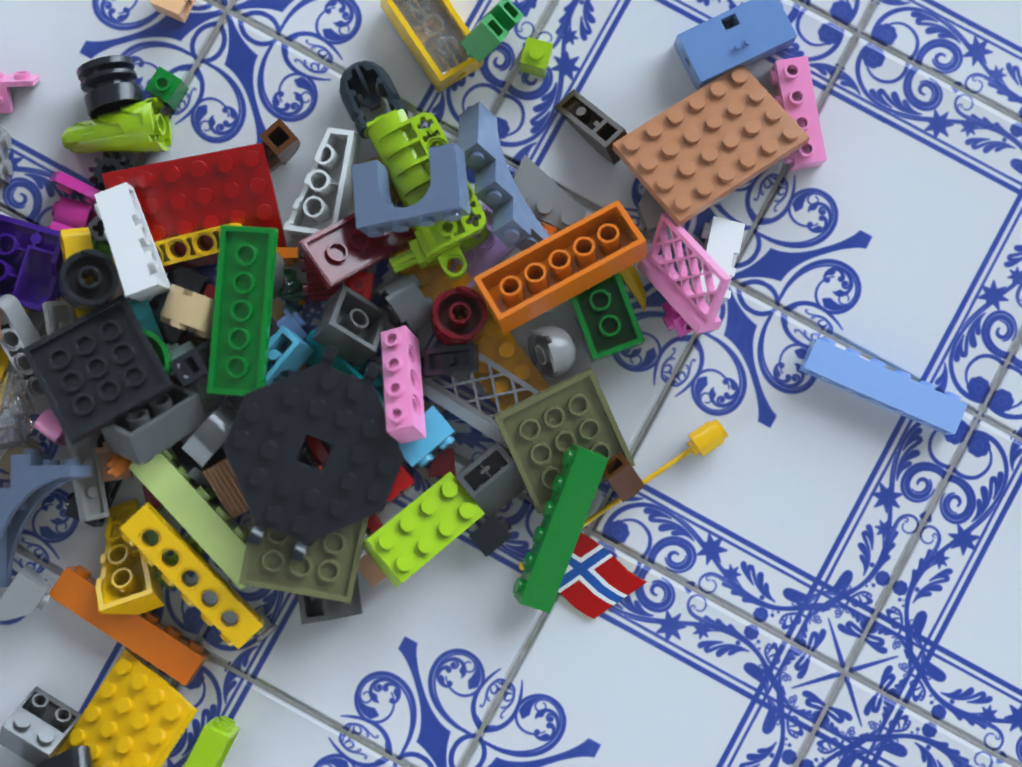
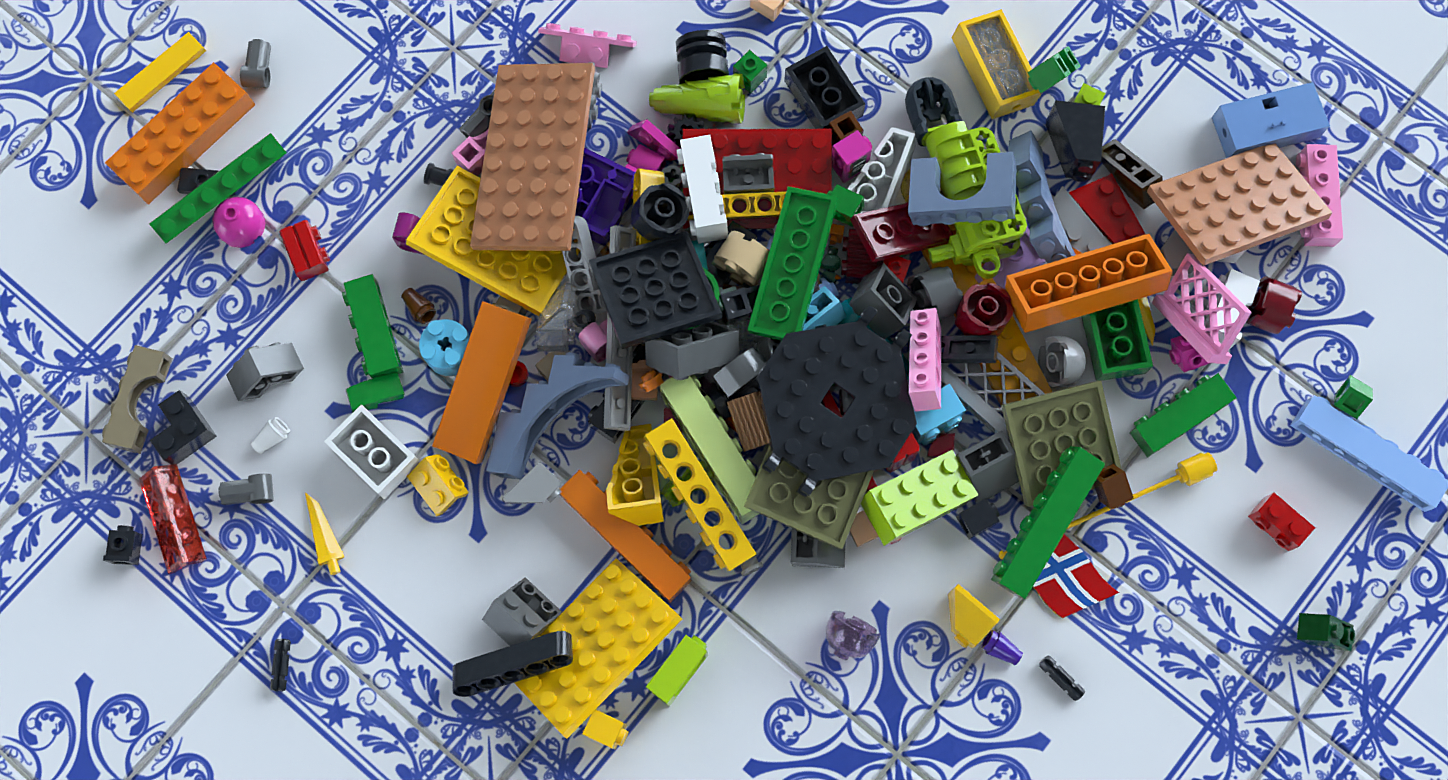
camera: 15 degrees right, 10 degrees down
(35, 406) = (590, 316): none -> black pin
(181, 213) = (748, 173): none -> dark grey bracket
(249, 95) = (823, 88): none -> black brick
(290, 226) = (848, 204): none -> green brick
(291, 166) = (851, 155): none -> dark pink brick
(379, 683) = (850, 636): none -> clear purple cylinder
(496, 643) = (969, 617): none -> yellow slope
(531, 99) = (1077, 137): none -> black slope
(534, 663) = (1001, 647): none -> dark purple cone
(581, 175) = (1108, 209): none -> red wing
(601, 681) = (1061, 677): none -> black axle
(686, 383) = (1182, 415): none -> green brick
(762, 248) = (1274, 305): none -> dark red brick
(801, 478) = (1281, 522): none -> red brick
(858, 331) = (1353, 397): none -> green brick
(859, 583) = (1325, 631): none -> dark green slope

